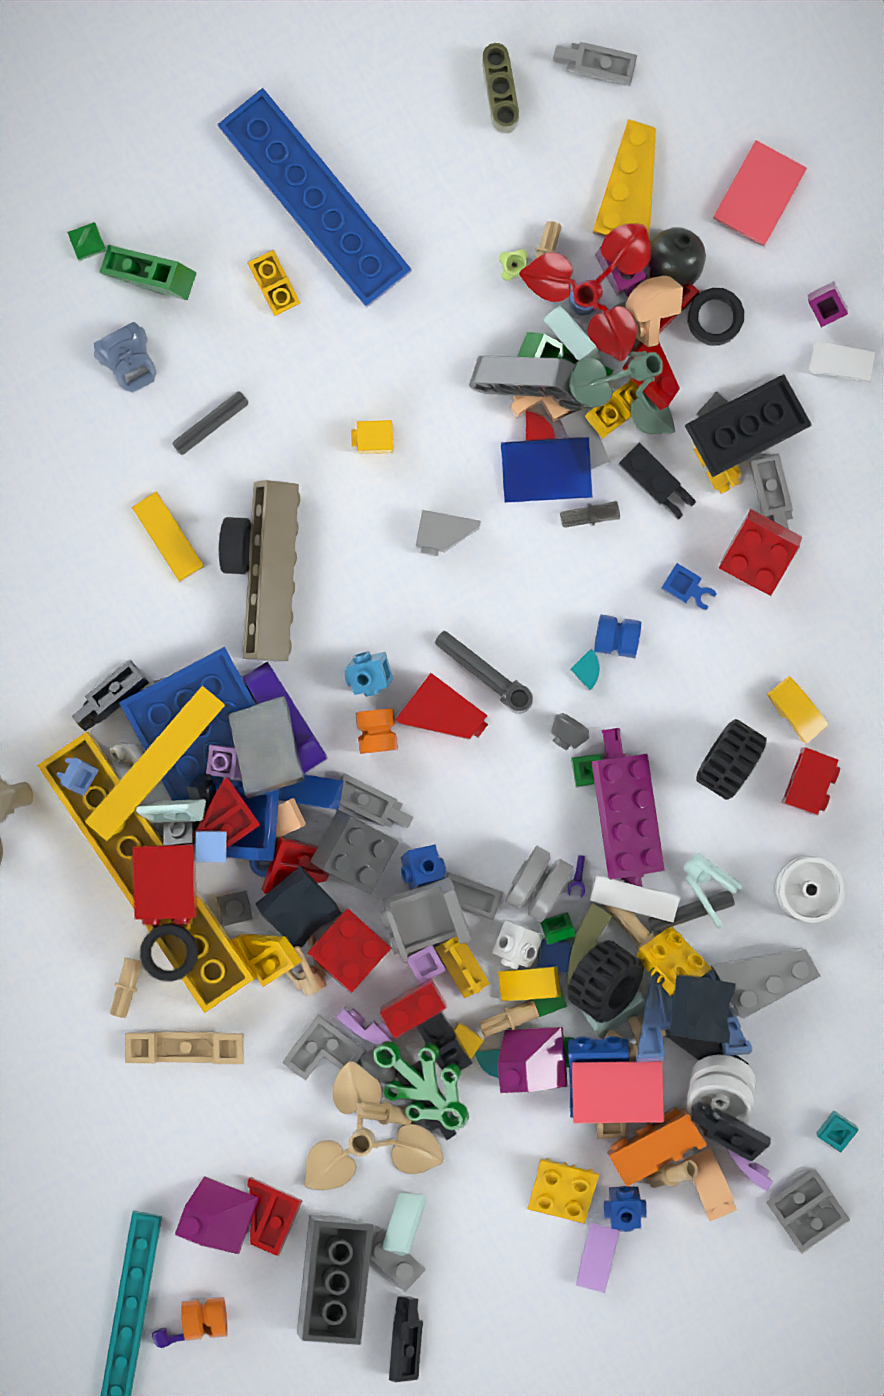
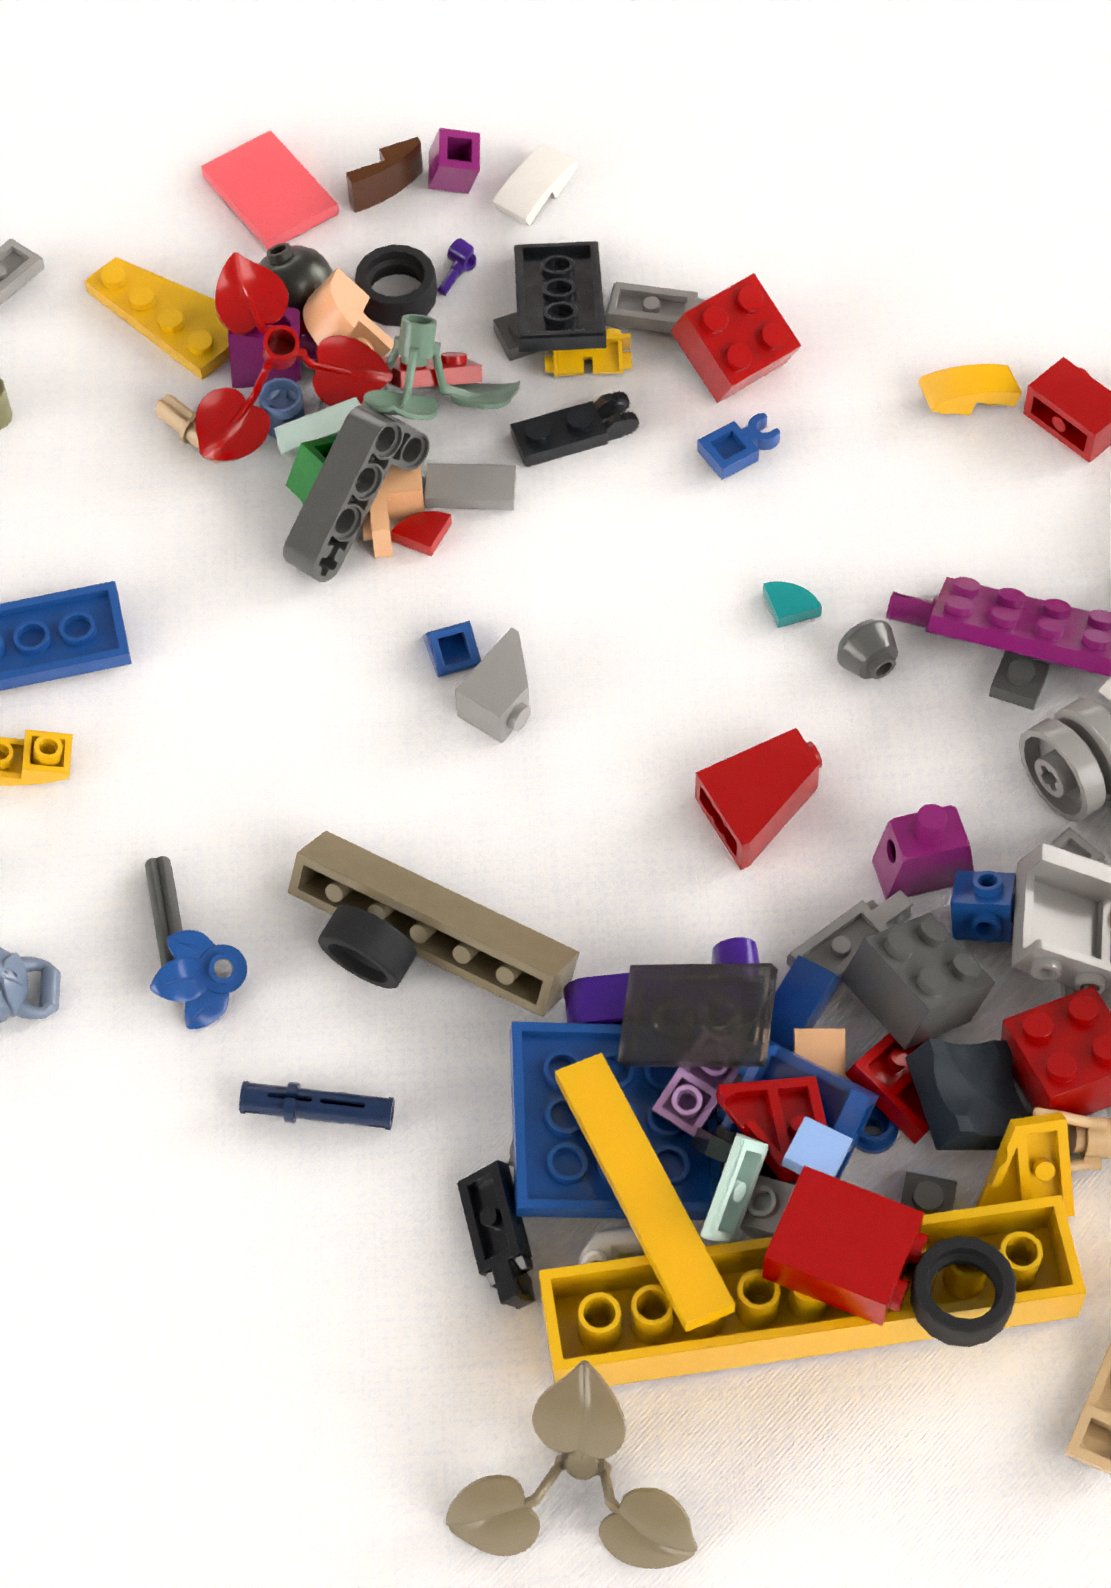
camera: 55 degrees left, 30 degrees down
(78, 775) = (607, 1301): medium blue tile -> none
(125, 987) = (986, 1423): tan axle -> none
(128, 531) = (317, 1105): none -> dark blue pin
(168, 536) = (299, 1050): yellow tile -> none
(179, 457) = (193, 980): none -> blue plate
(368, 673) = (654, 857): dark azure brick -> none
(373, 437) = (316, 718): yellow brick -> none
(376, 731) = (745, 884): orange wheel -> none
(441, 821) = (922, 851): none -> magenta torso
(464, 487) = (452, 649): none -> blue slope
(484, 671) = (738, 716): dark grey axle -> none
(508, 258) = (187, 462): yellowish green plate -> none
(546, 469) = (484, 540): clear blue piece -> none
(583, 769) = (936, 655): green tile -> none
(590, 514) = (576, 513): clear smoke axle -> none
(590, 825) = (1019, 680): none -> dark grey plate
(615, 412) = (452, 434): yellow slope -> none
(617, 636) = (762, 541): blue wheel -> none
(731, 759) = (1006, 464): black tyre -> none
(761, 345) = (462, 256): none -> dark purple hand
(813, 267) = (379, 181): none -> reddish brown slope

